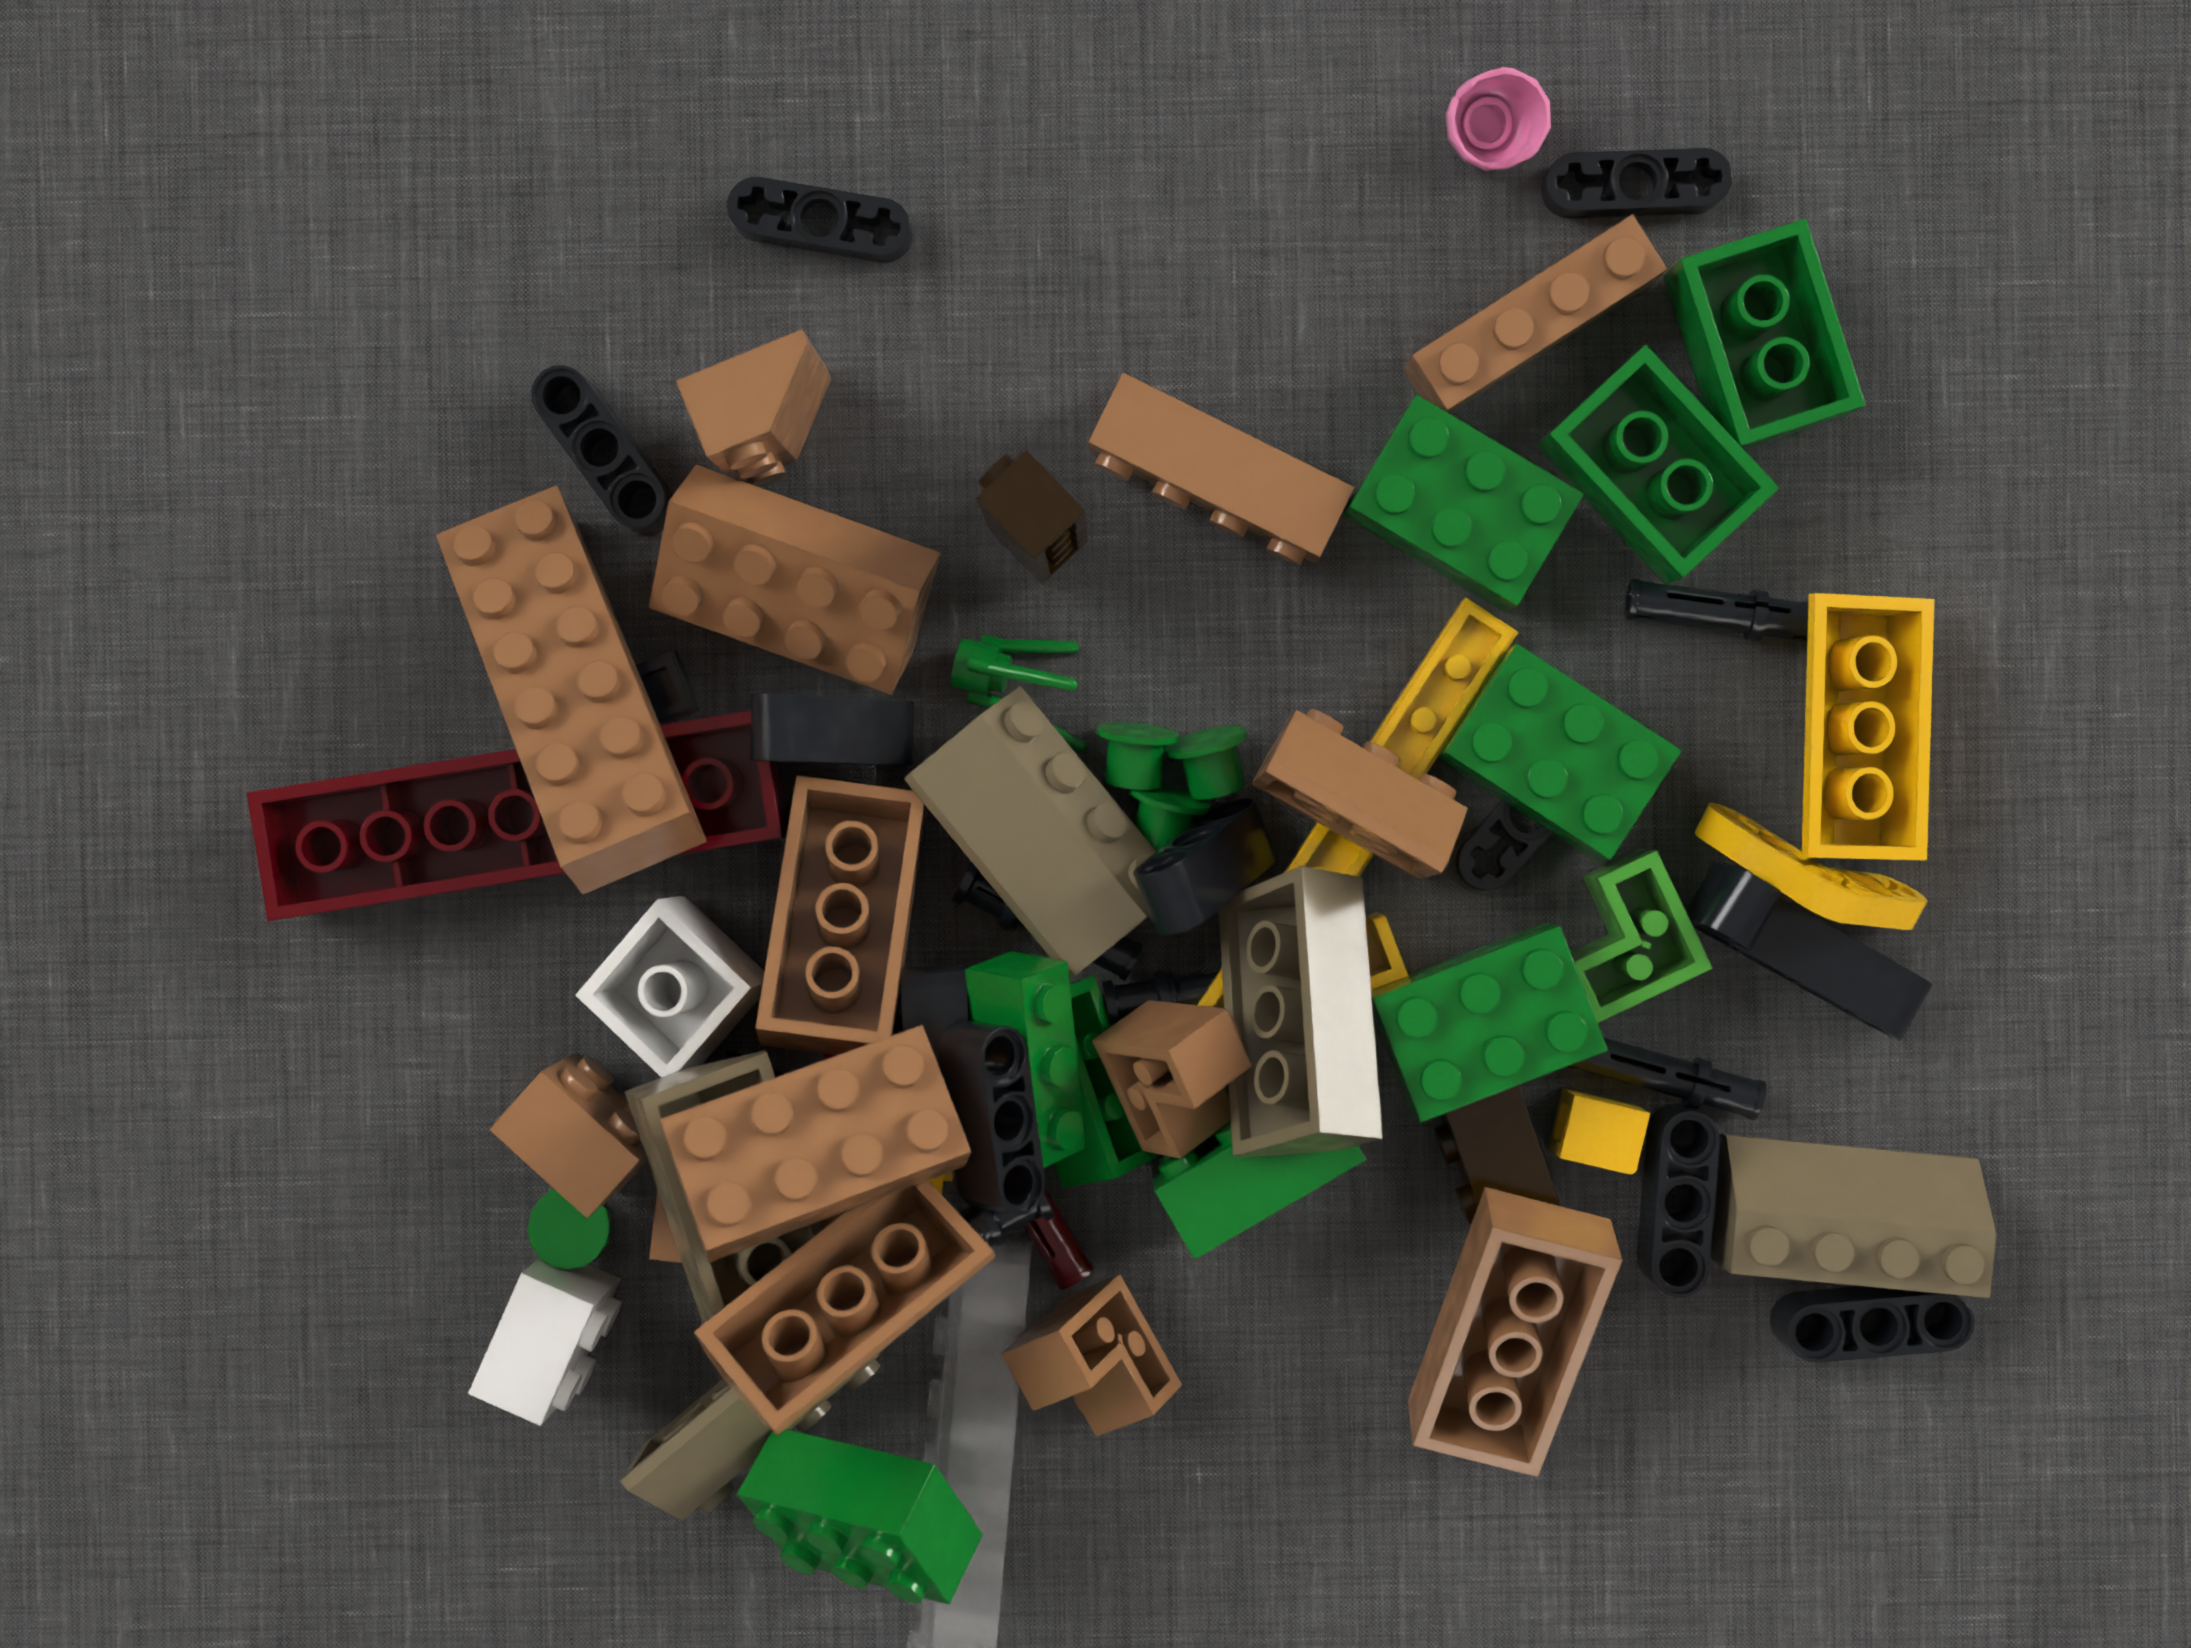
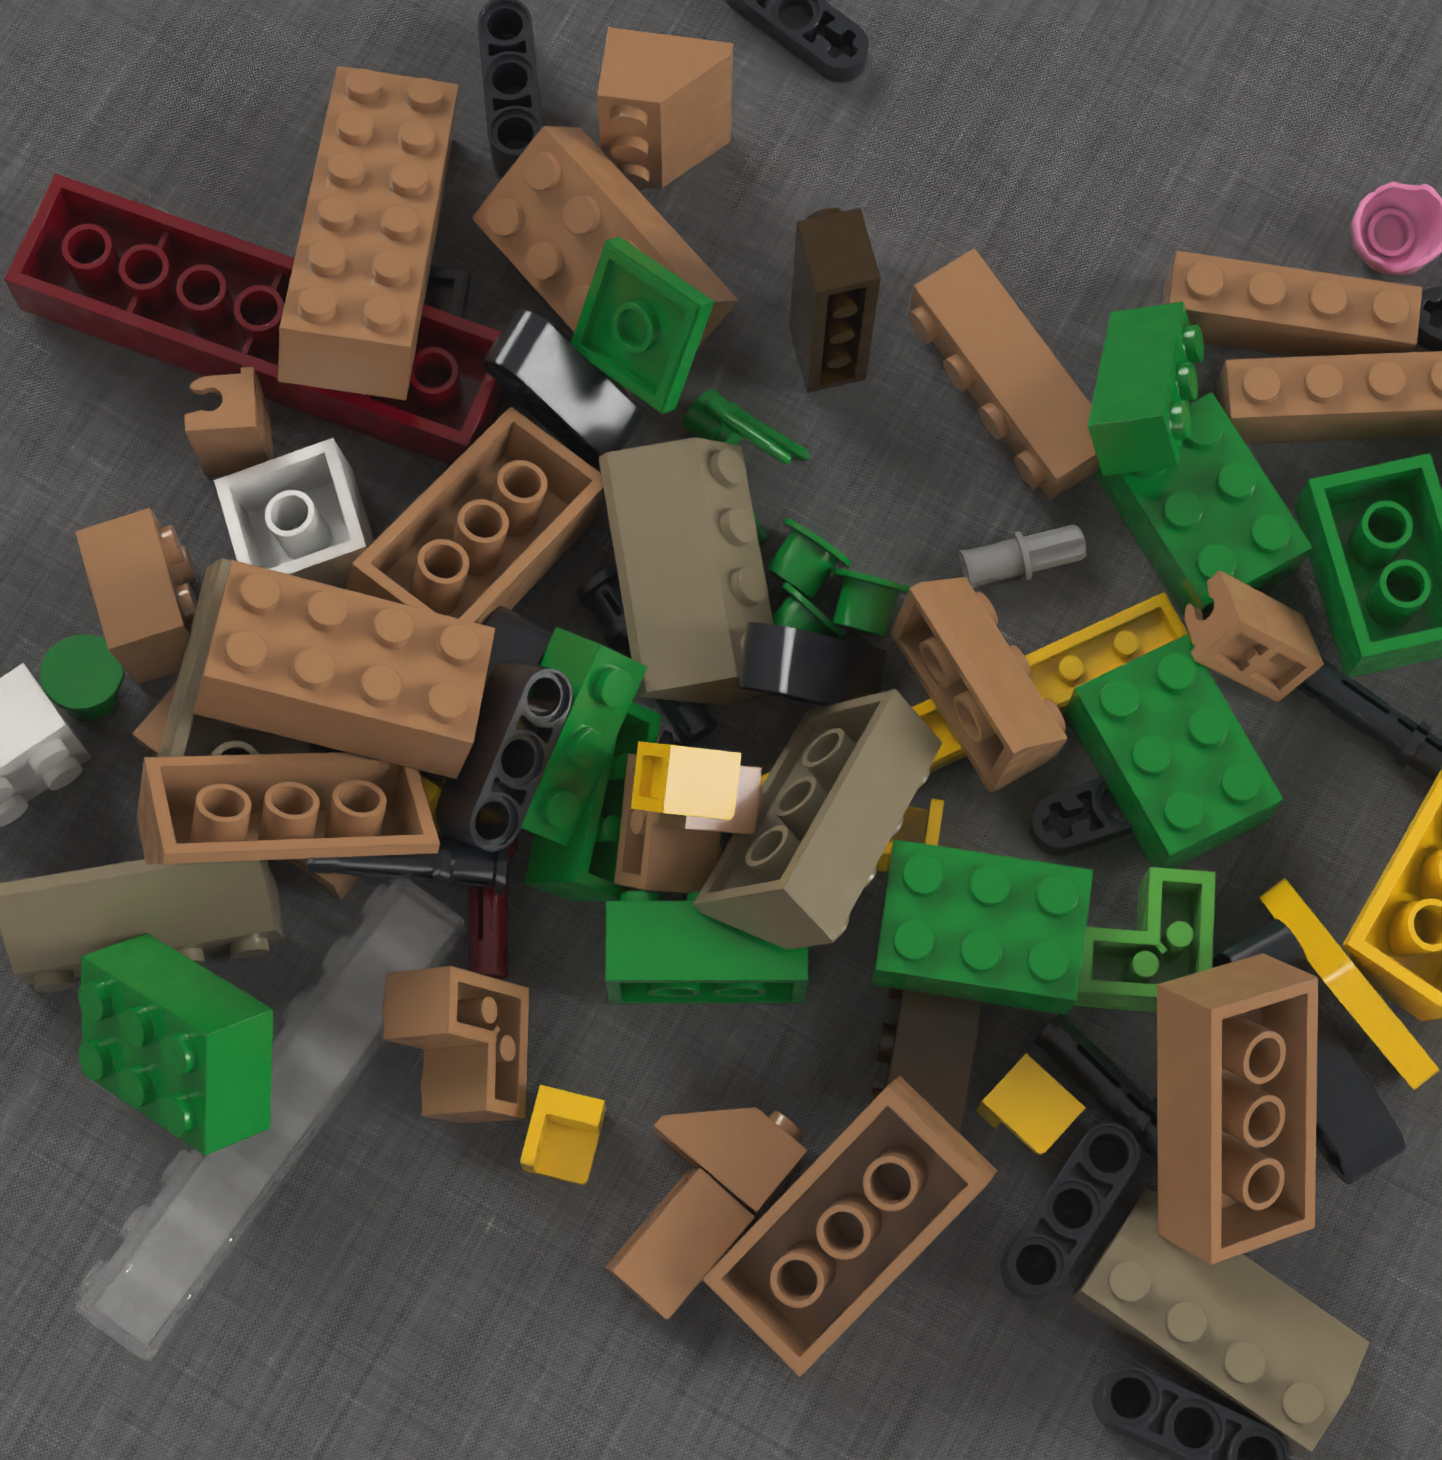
camera: 30 degrees right, 15 degrees down
(565, 925) = (237, 431): none -> medium nougat hinge
(874, 646) = (641, 324): none -> green plate
(1169, 1063) = (685, 781): none -> yellow panel
(1218, 1373) = (563, 1135): none -> yellow panel
(1322, 634) = (1022, 555): none -> light grey axle
(1357, 430) = (1145, 388): none -> green brick
(1367, 1410) = (679, 1242): none -> medium nougat hinge
(1373, 1308) = (737, 1149): none -> medium nougat slope
(1440, 262) = (1292, 308): none -> medium nougat brick
(1574, 607) = (1252, 638): none -> medium nougat hinge
(1788, 1056) = (1236, 1106): none -> medium nougat brick

